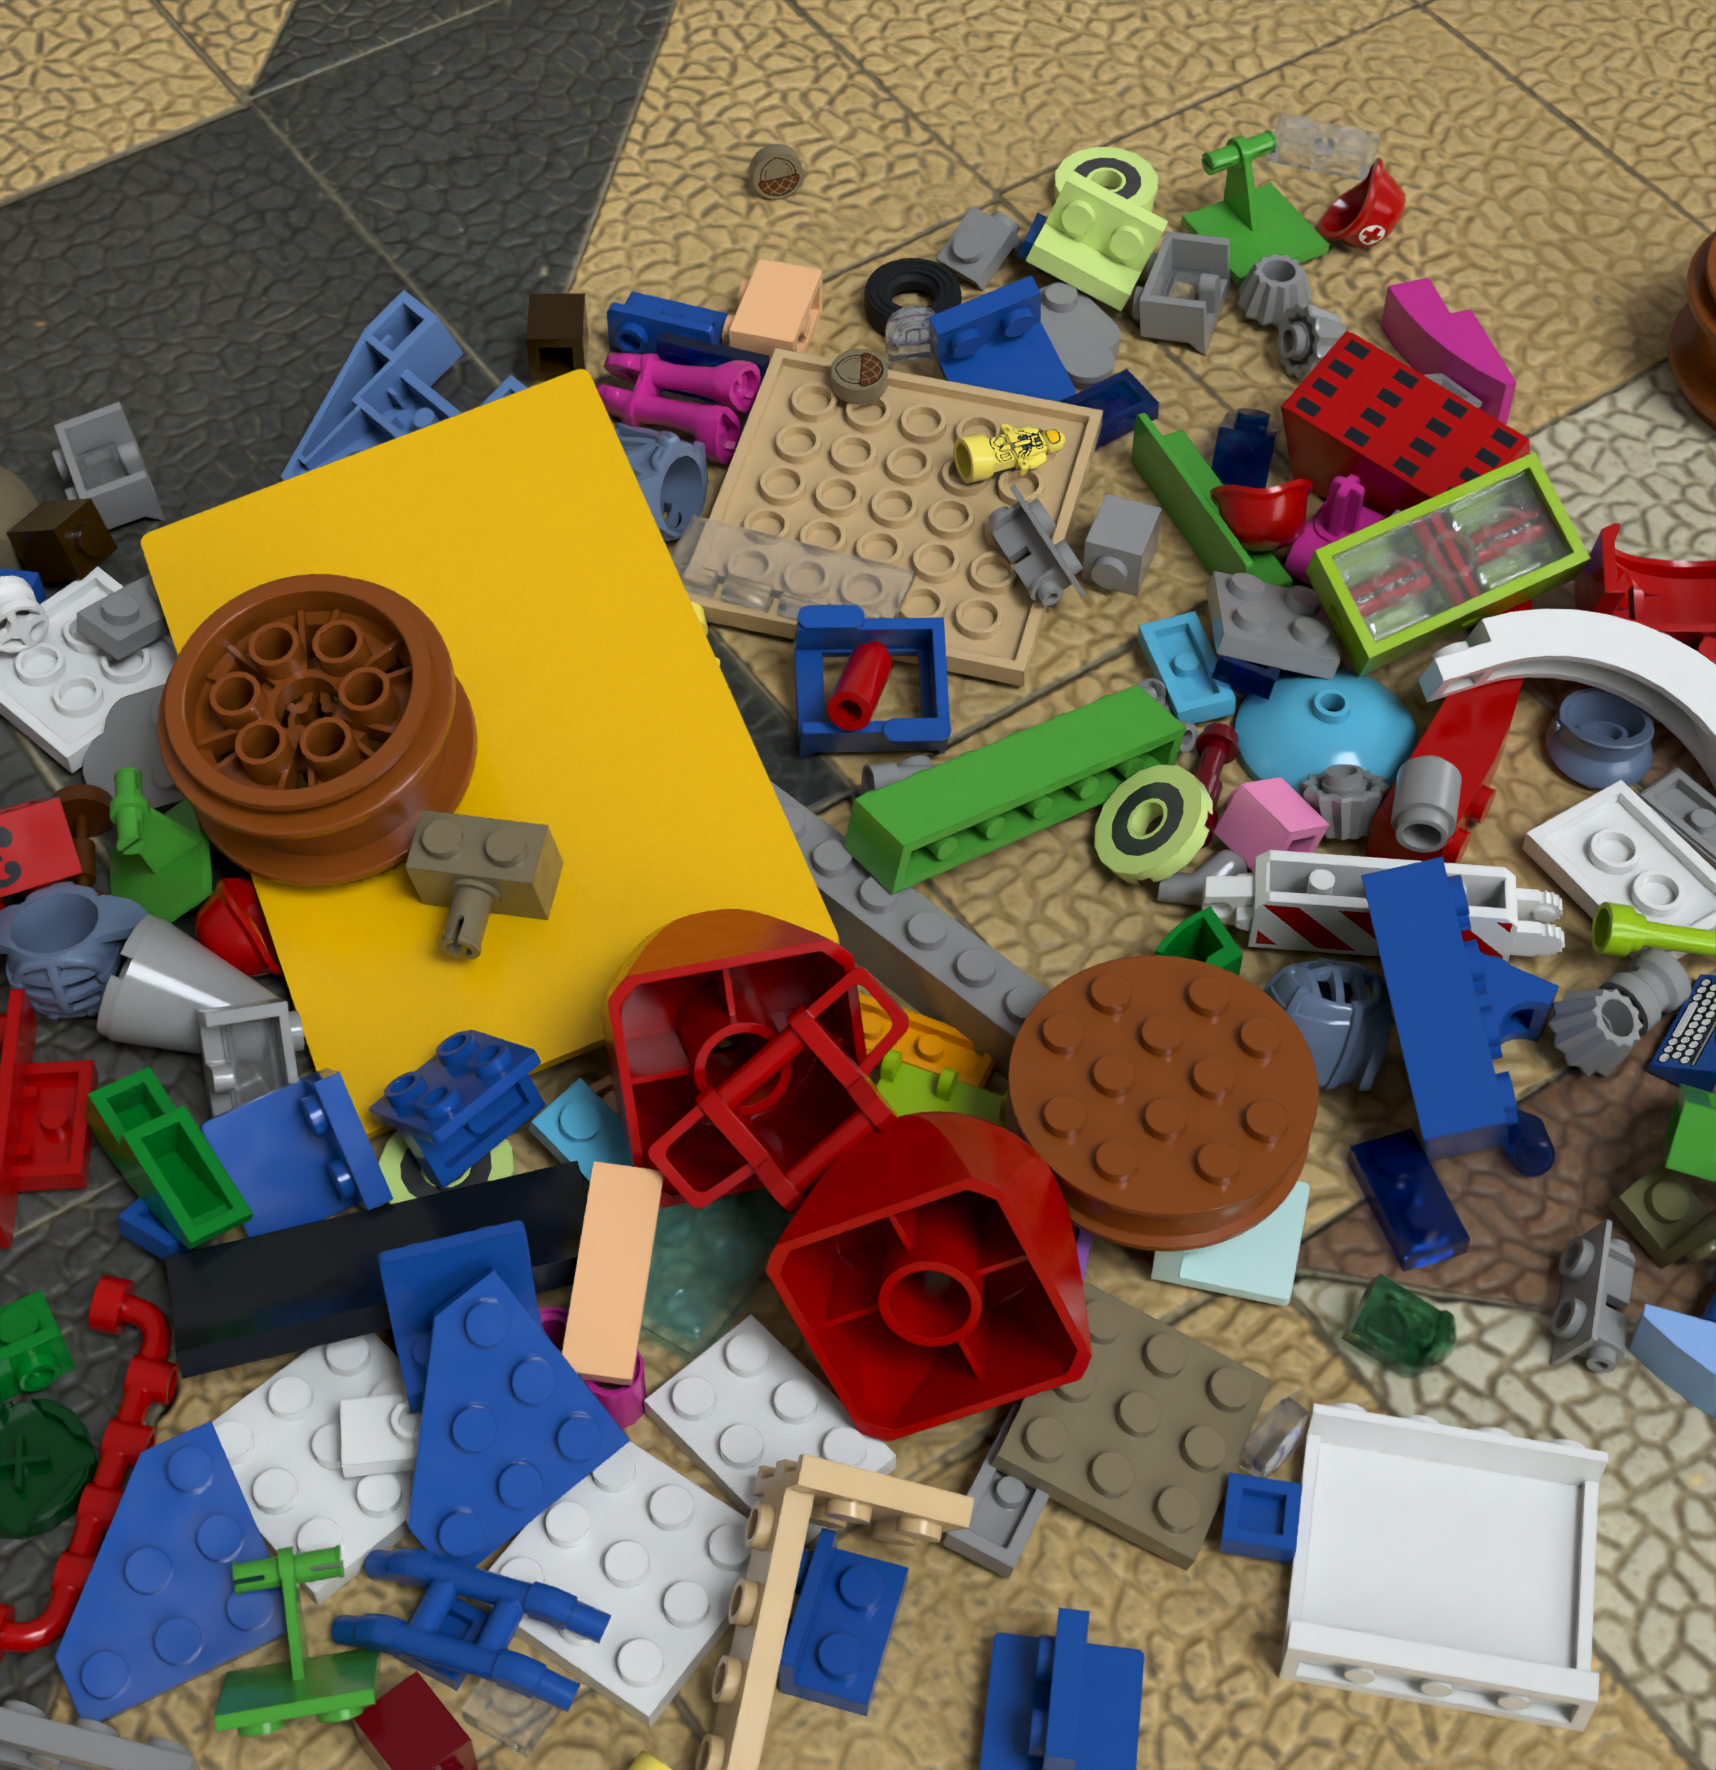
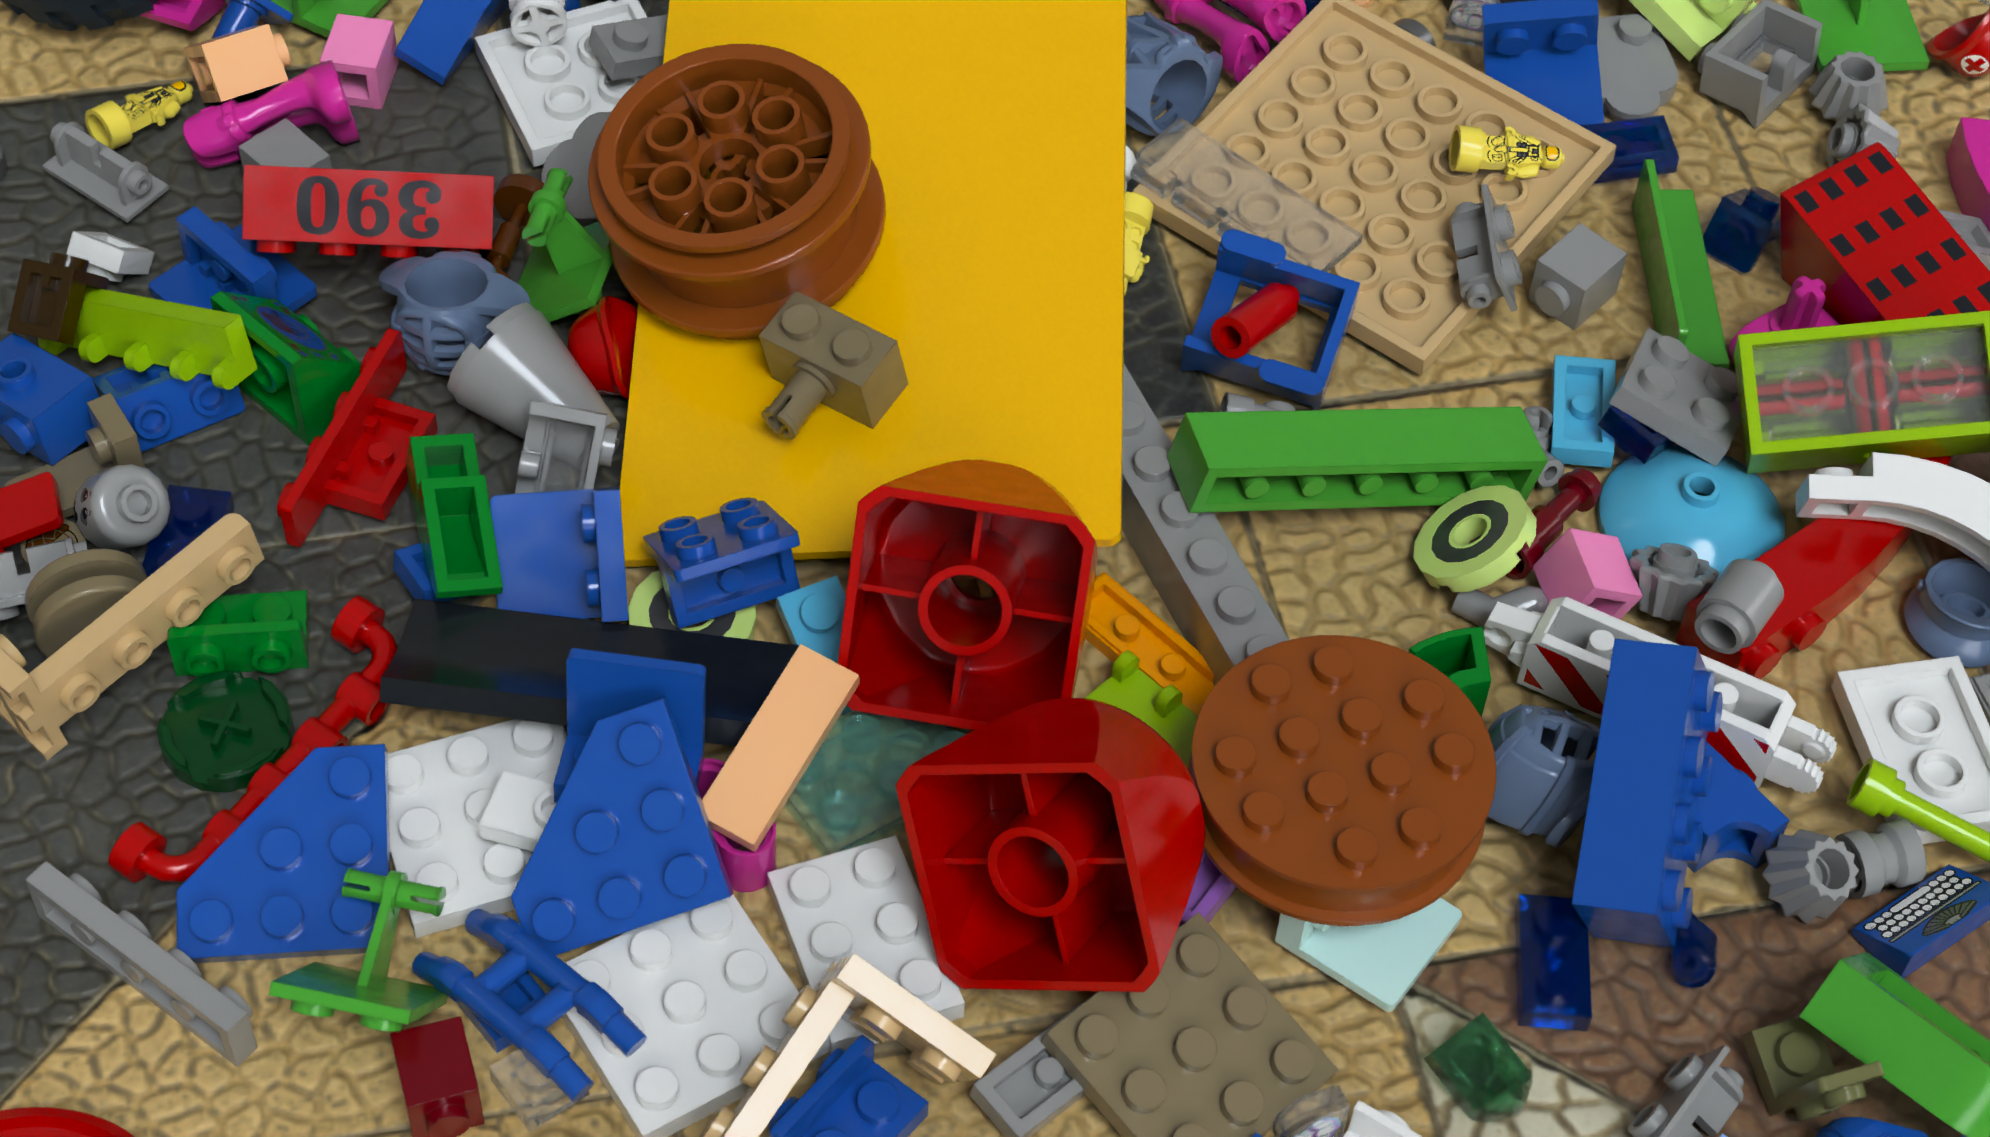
camera: 20 degrees right, 0 degrees up
(720, 1103) = (930, 630): red bar -> none
(859, 376) = (1395, 40): dark tan tile -> none
(1264, 516) = (1723, 293): red helmet -> none

